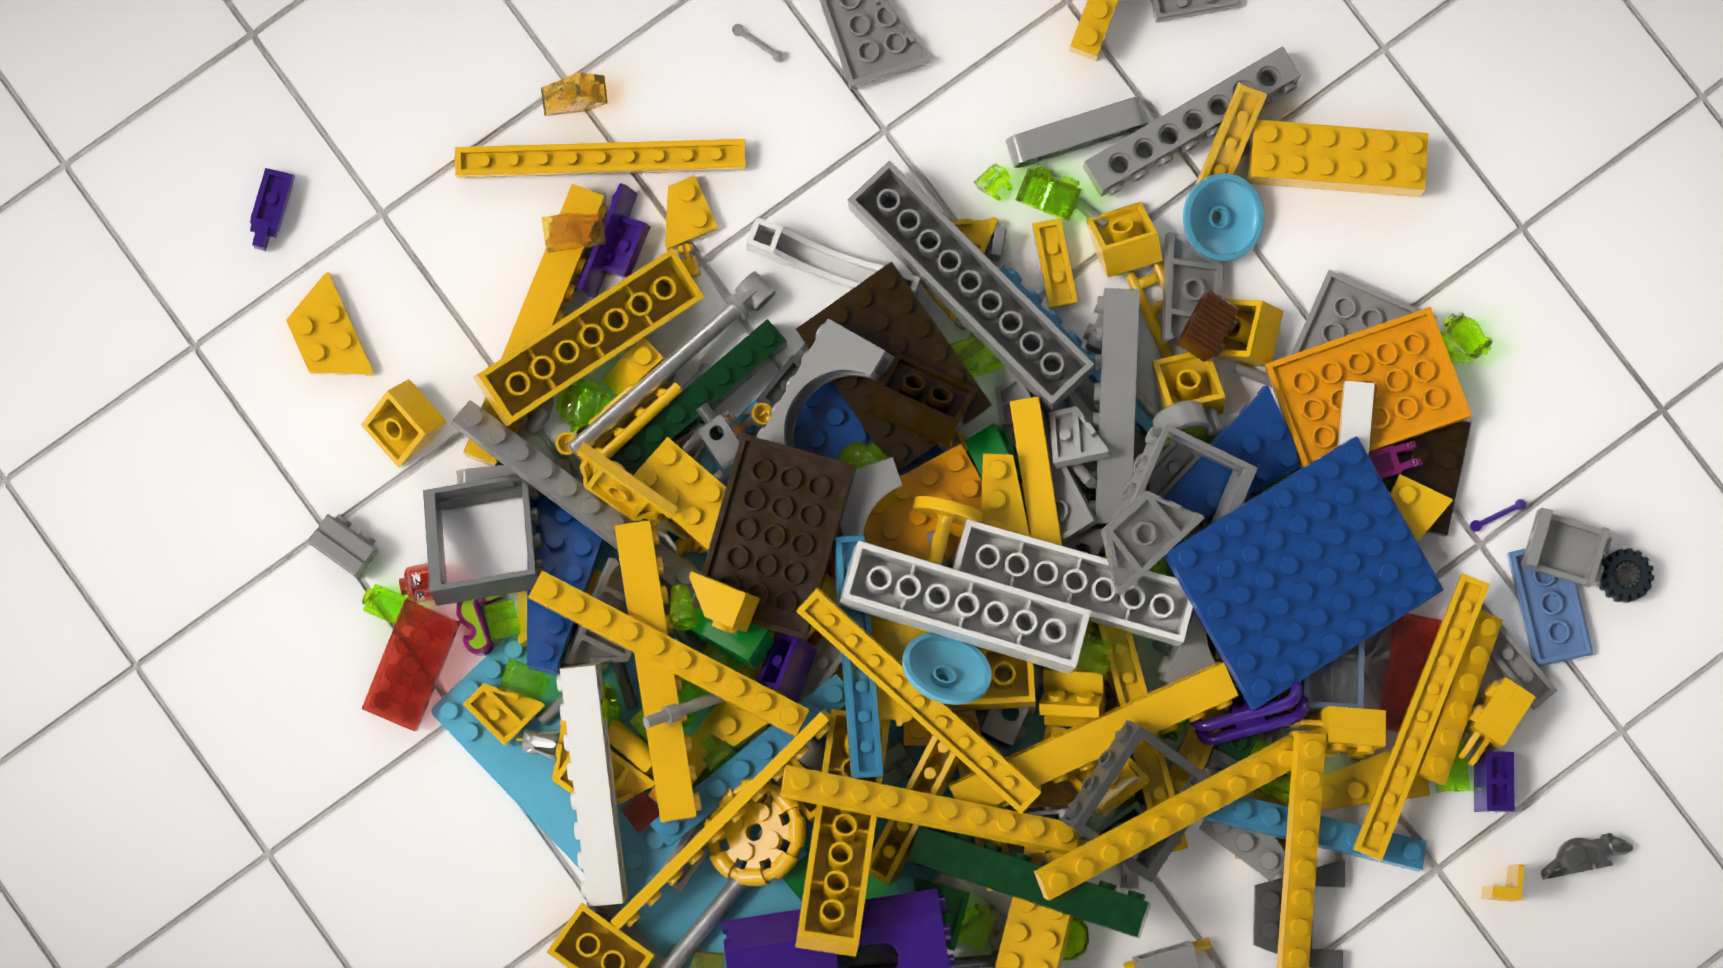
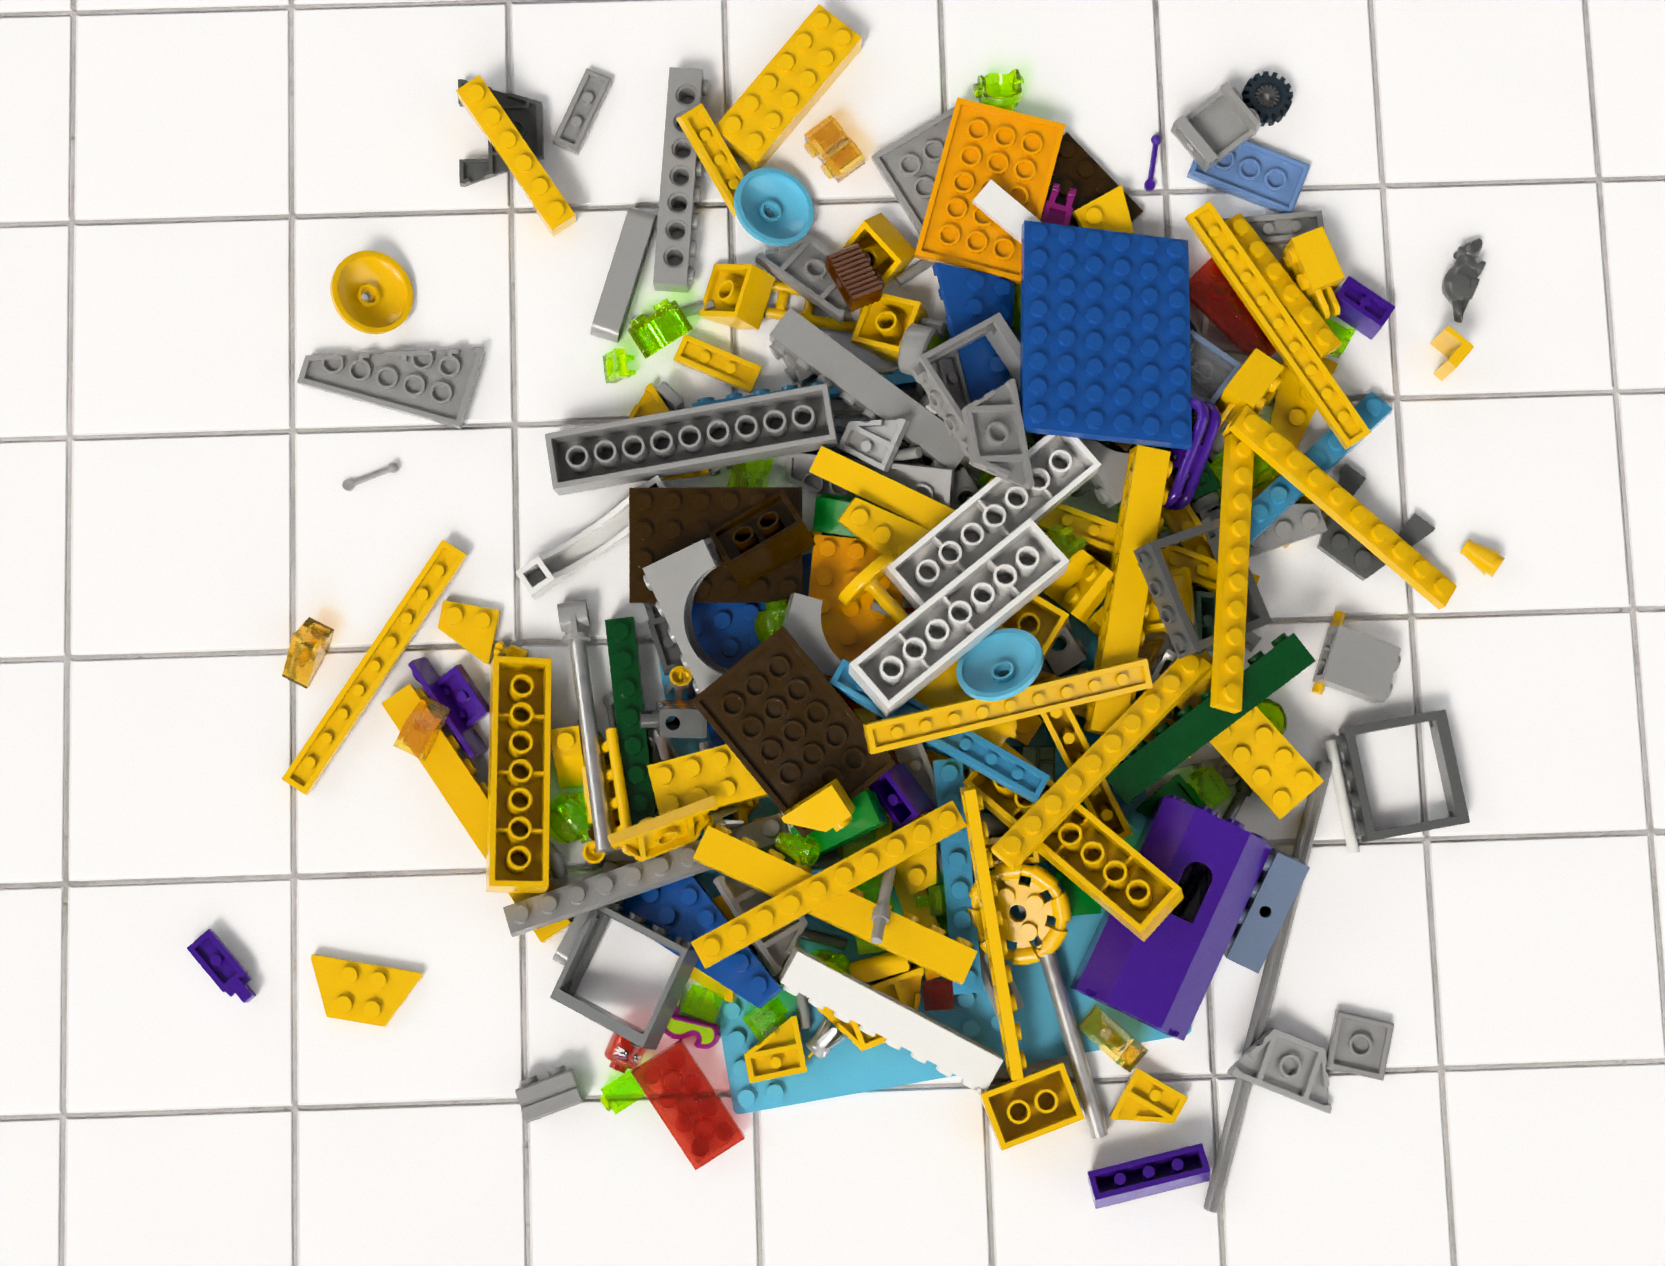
camera: 60 degrees left, 0 degrees up
(403, 422) = (481, 975): yellow slope -> none
(1312, 233) = (833, 149): none -> clear yellow brick

